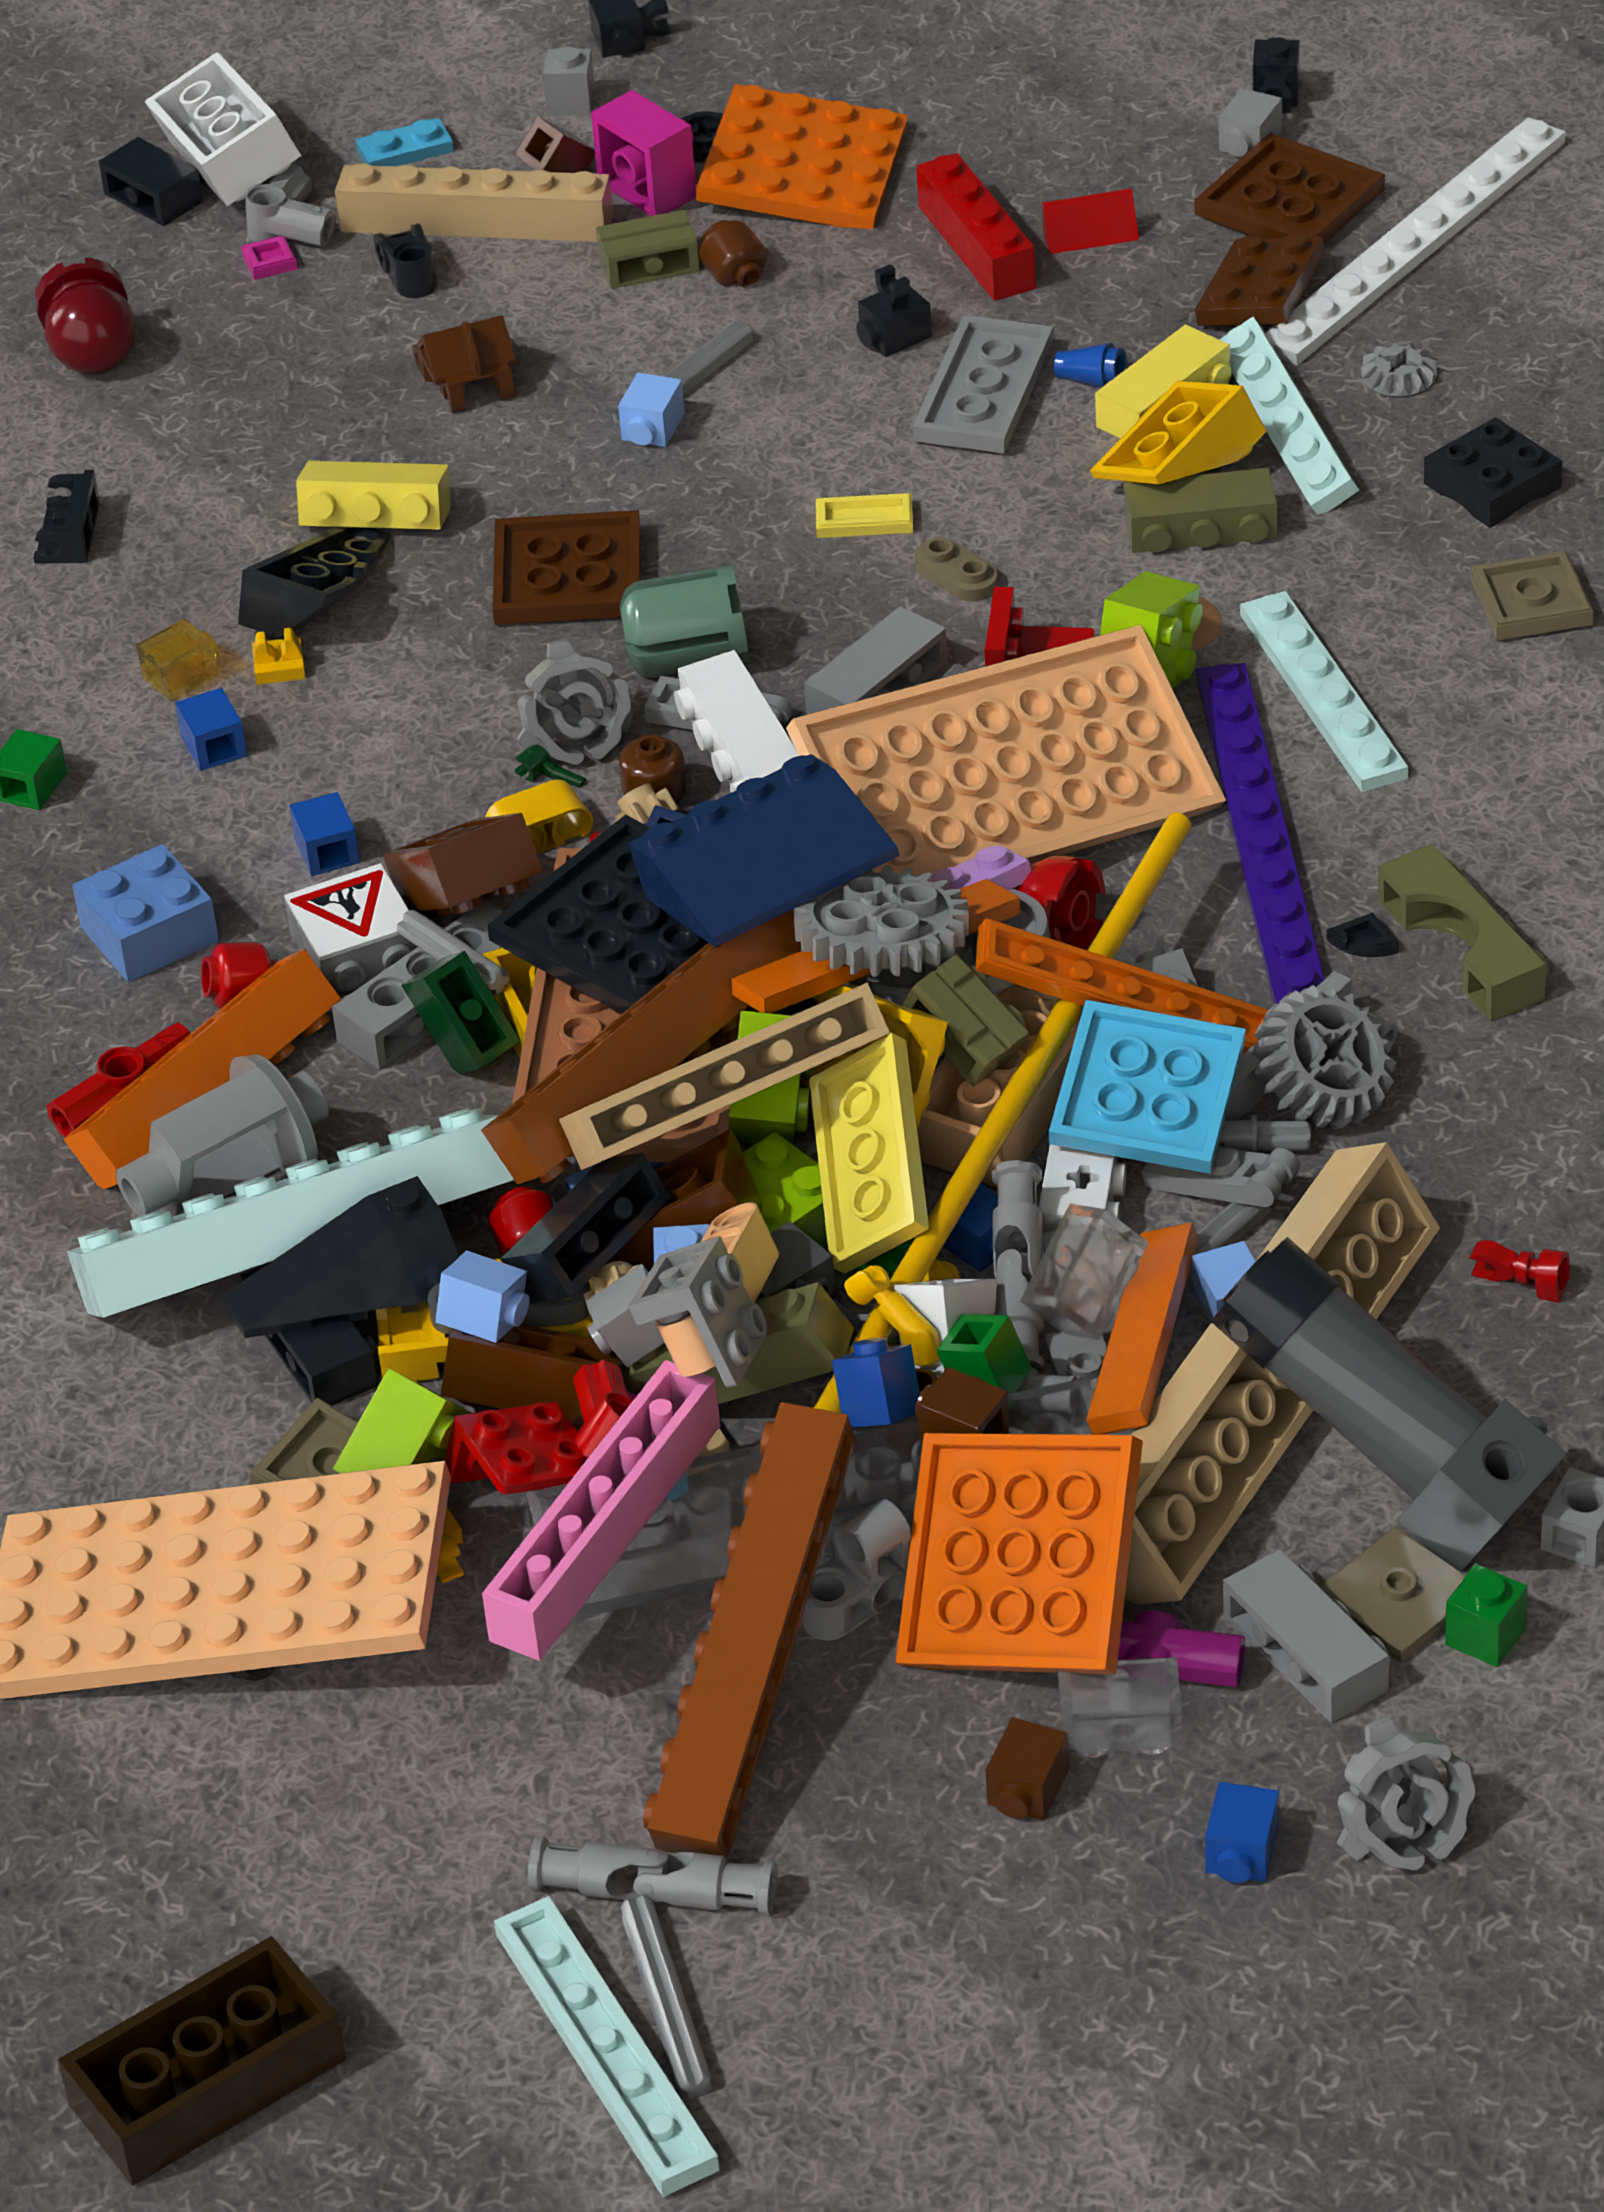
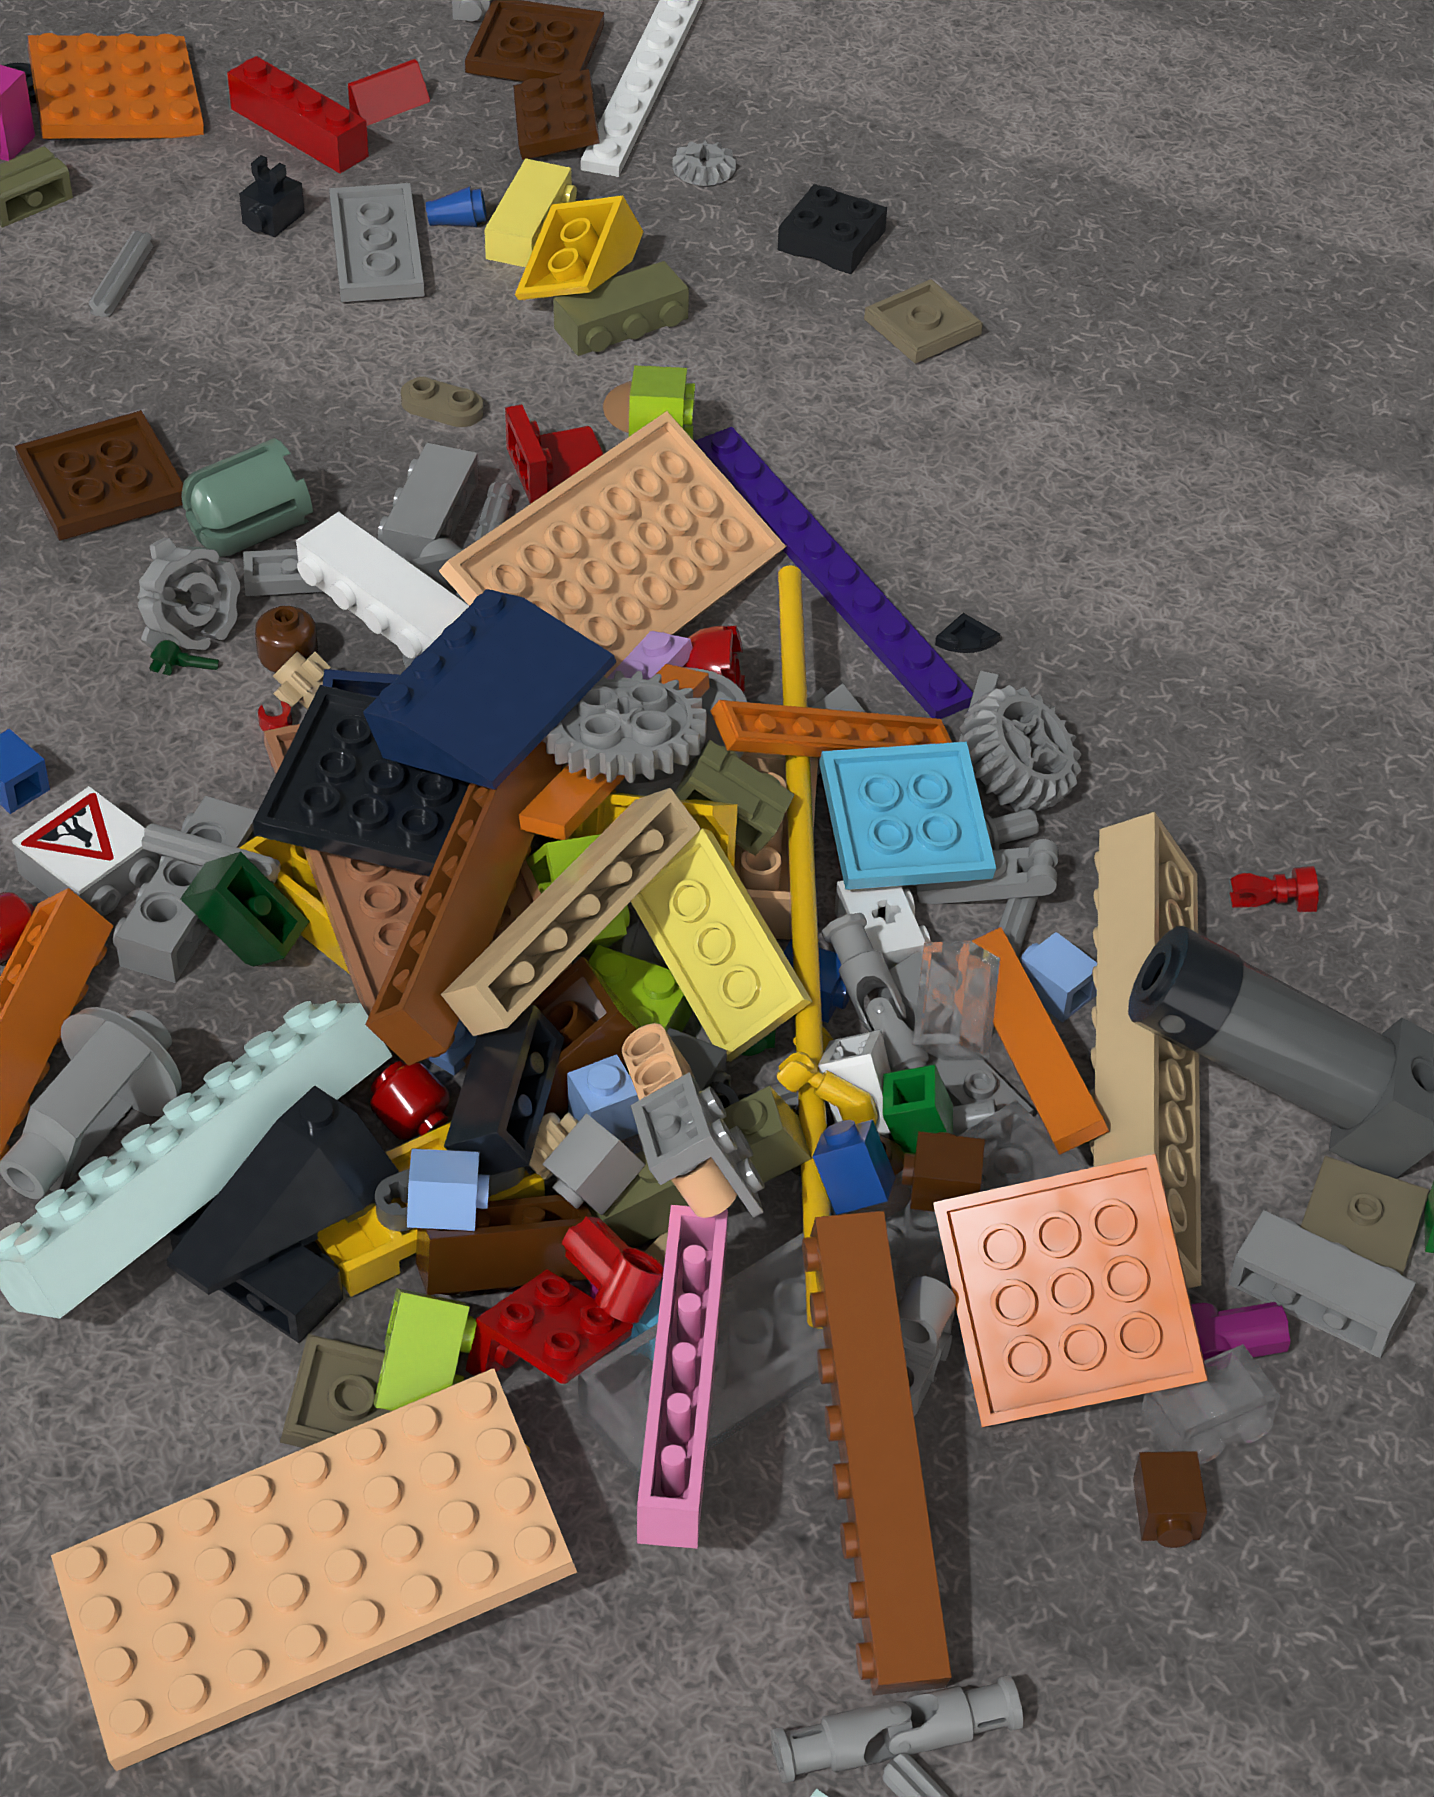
camera: 30 degrees left, 5 degrees up
(464, 863) = (176, 766): reddish brown brick -> none
(550, 812) = (202, 708): yellow beam -> none
(651, 409) = (102, 321): light blue brick -> none
(732, 253) = (100, 175): reddish brown head -> none
(864, 515) = (335, 373): light yellow tile -> none
(1242, 1832) = (1389, 1495): blue brick -> none
(1288, 418) = (663, 231): light aqua plate -> none
(1324, 691) = (807, 436): light aqua plate -> none
(1431, 893) = (1006, 585): olive arch -> none

